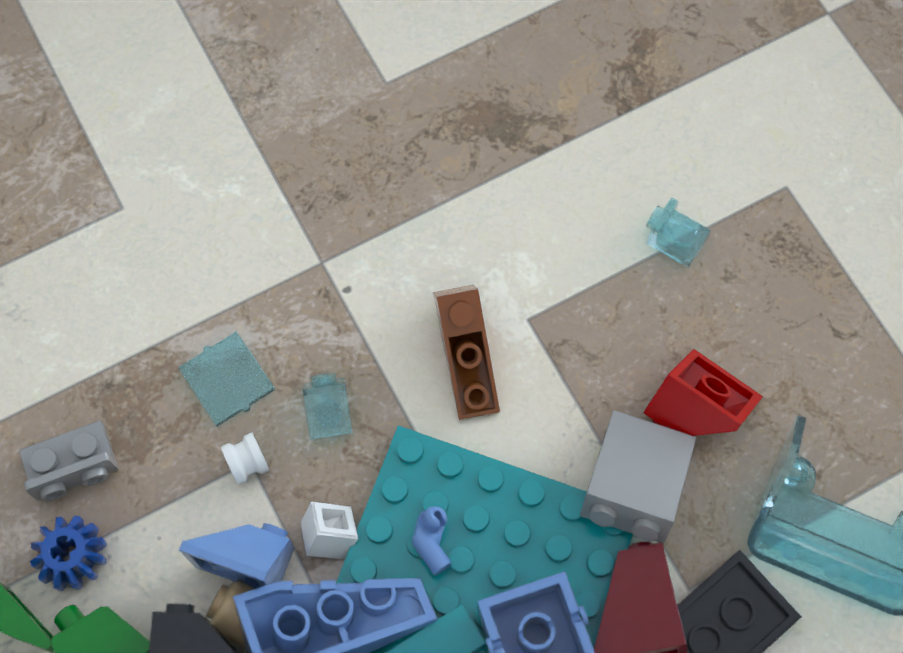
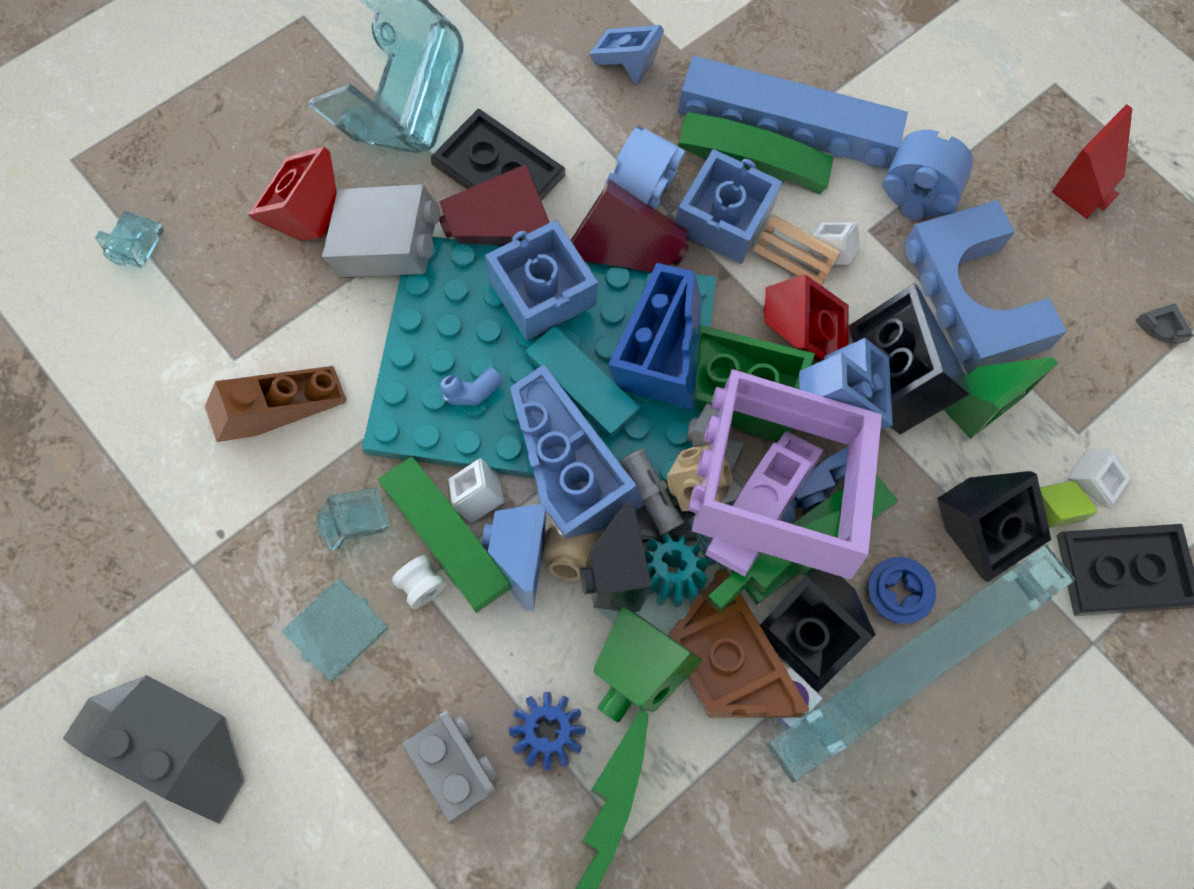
camera: 110 degrees left, 0 degrees up
(157, 220) = (162, 744): none -> dark grey wedge
(289, 487) = (445, 534): none -> green slope

